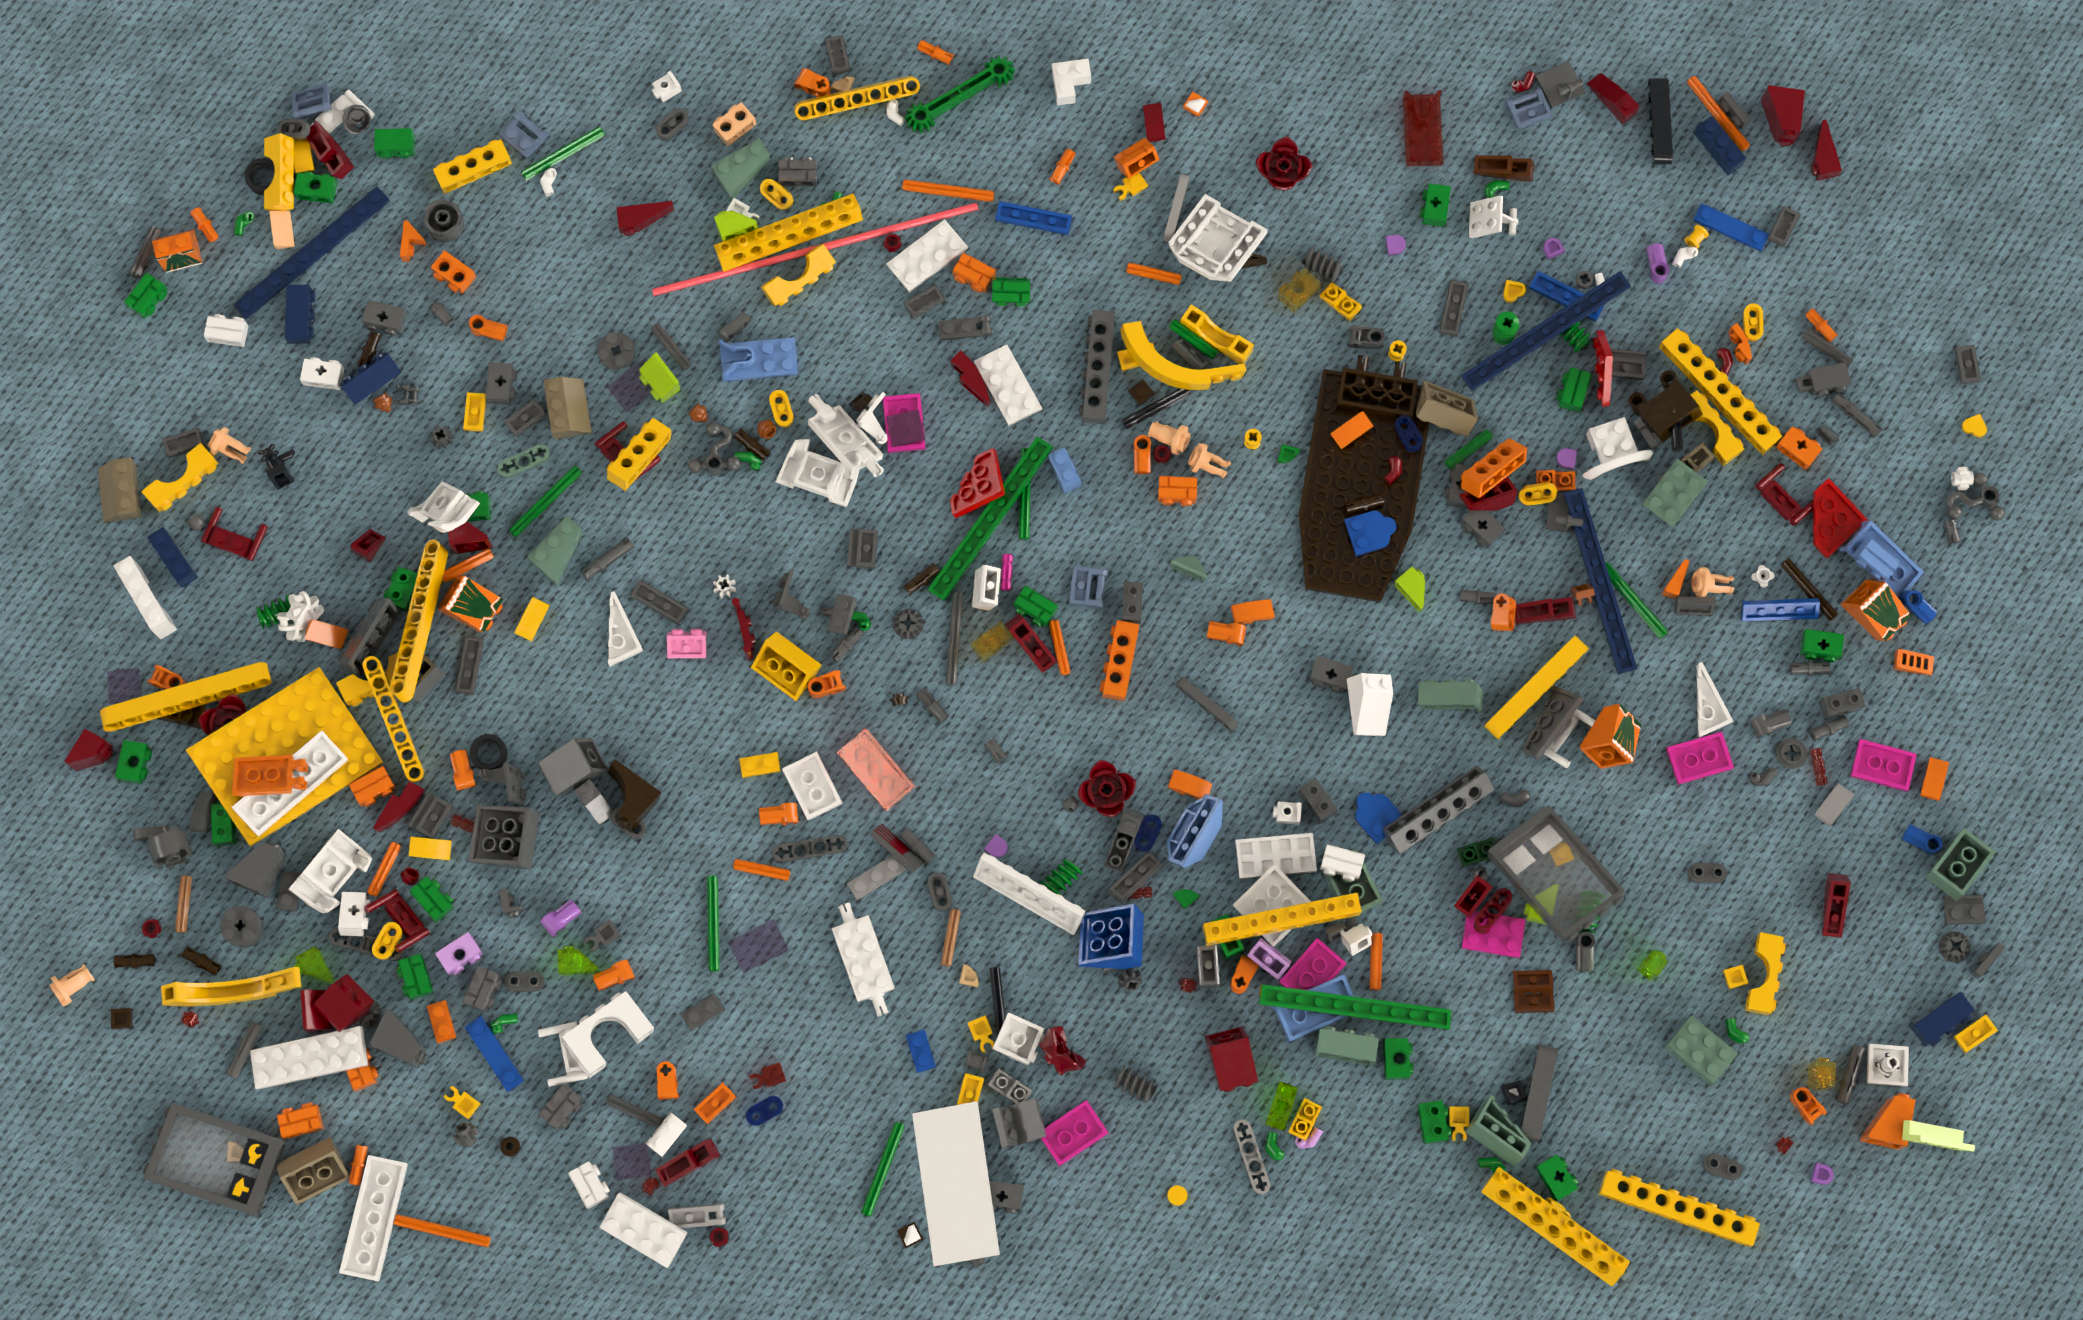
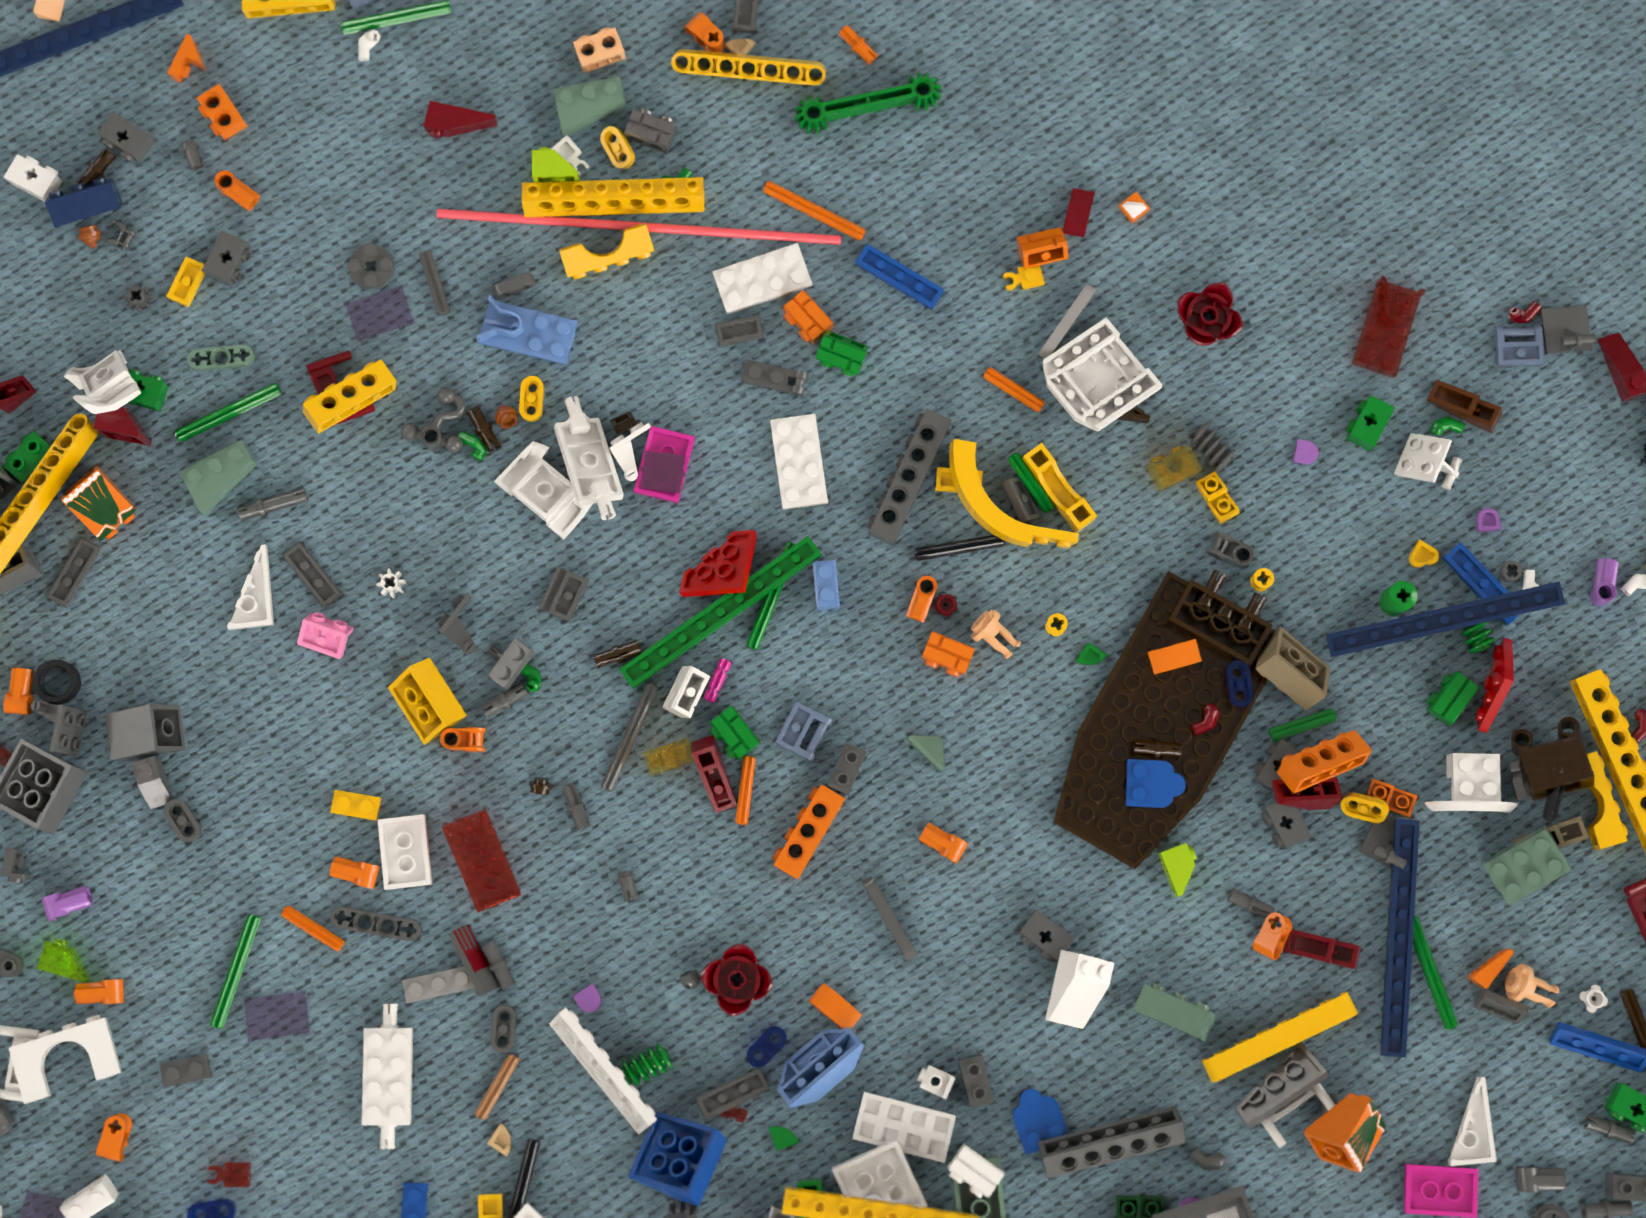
camera: 20 degrees right, 5 degrees up
(299, 314) = (33, 100): dark blue brick -> none
(453, 223) = (232, 49): dark grey brick -> none
(467, 565) = (114, 455): orange axle -> none
(525, 418) = (240, 308): dark grey plate -> none
(532, 618) = (161, 544): yellow slope -> none
(567, 407) = (291, 312): dark tan slope -> none
(605, 934) = (108, 941): dark grey plate -> none
(634, 1111) = (66, 1158): dark grey axle -> none
(637, 795) = (202, 797): dark brown arch -> none
(659, 378) = (405, 316): lime slope -> none
(671, 124) = (529, 24): dark grey plate -> none
(698, 413) = (436, 372): dark orange plate -> none
(715, 1103) = (159, 1183): orange plate -> none
(744, 622) = (397, 633): dark red plate -> none
(892, 112) = (784, 98): white arm -> none
(892, 238) = (724, 245): dark red plate -> none
(914, 629) = (587, 711): dark grey gear -> none
(970, 377) = (759, 438): dark red slope -> none
(1062, 166) = (954, 227): orange axle -> none
(1068, 75) = (997, 124): white brick -> none
(1124, 839) = (737, 1043): dark grey slope -> none
(1141, 392) = (948, 524): dark brown plate -> none
(1173, 437) = (968, 593): light nougat piece -> none
(1252, 611) = (982, 828): orange slope -> none
(1453, 308) = (1346, 551): dark grey tile -> none
(1566, 458) = (1414, 776): medium lavender tile -> none
(1582, 591) = (1374, 942): dark orange tile -> none
(1628, 364) = (1528, 691): dark grey plate -> none

